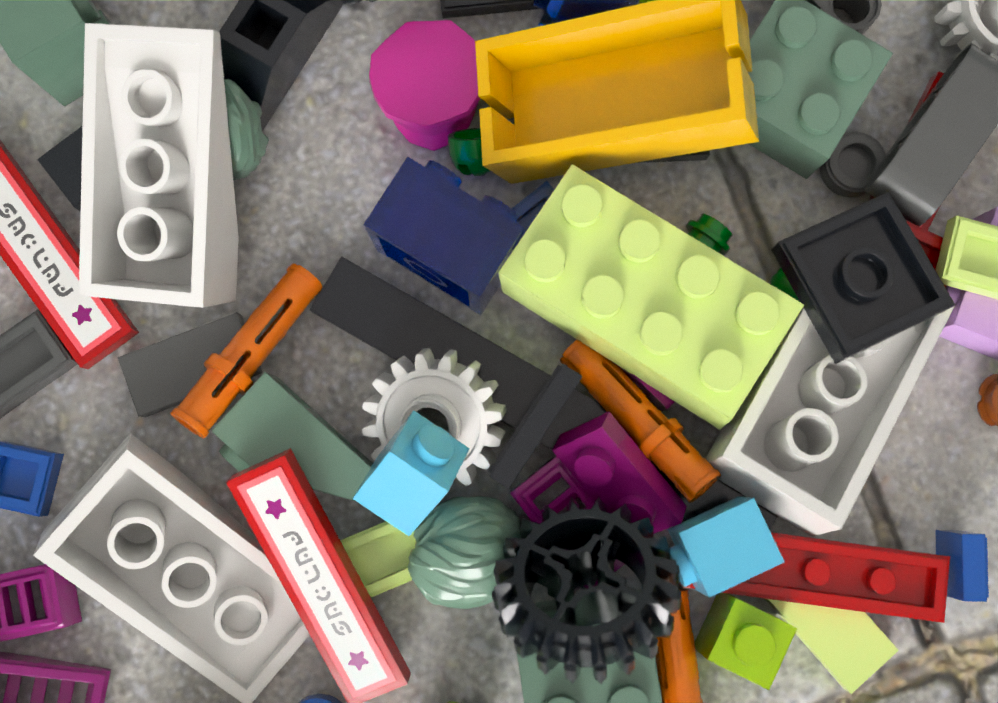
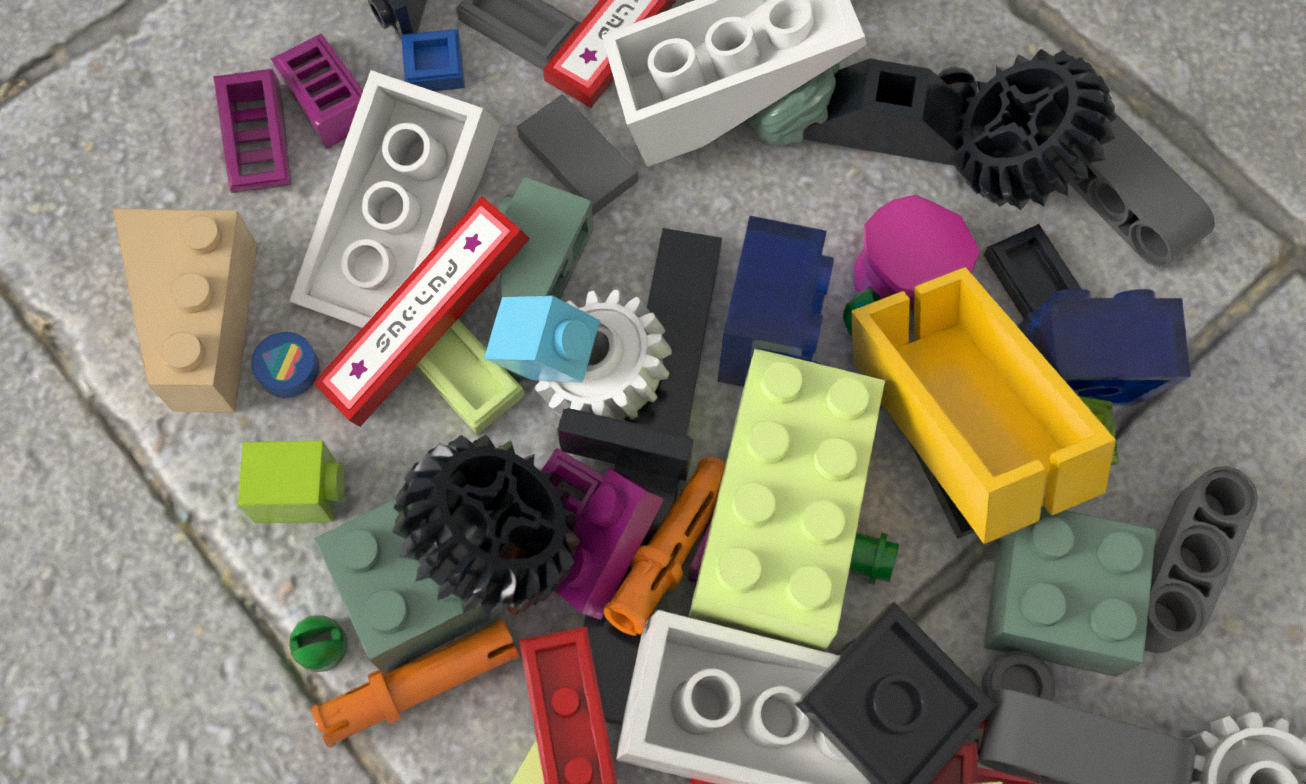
camera: 75 degrees right, 15 degrees down
(201, 410) = (673, 210): orange pin -> none
(459, 550) = (490, 408): sand green hair -> none
(724, 546) = (570, 648): medium azure brick -> none
(744, 639) = (487, 721): lime brick -> none

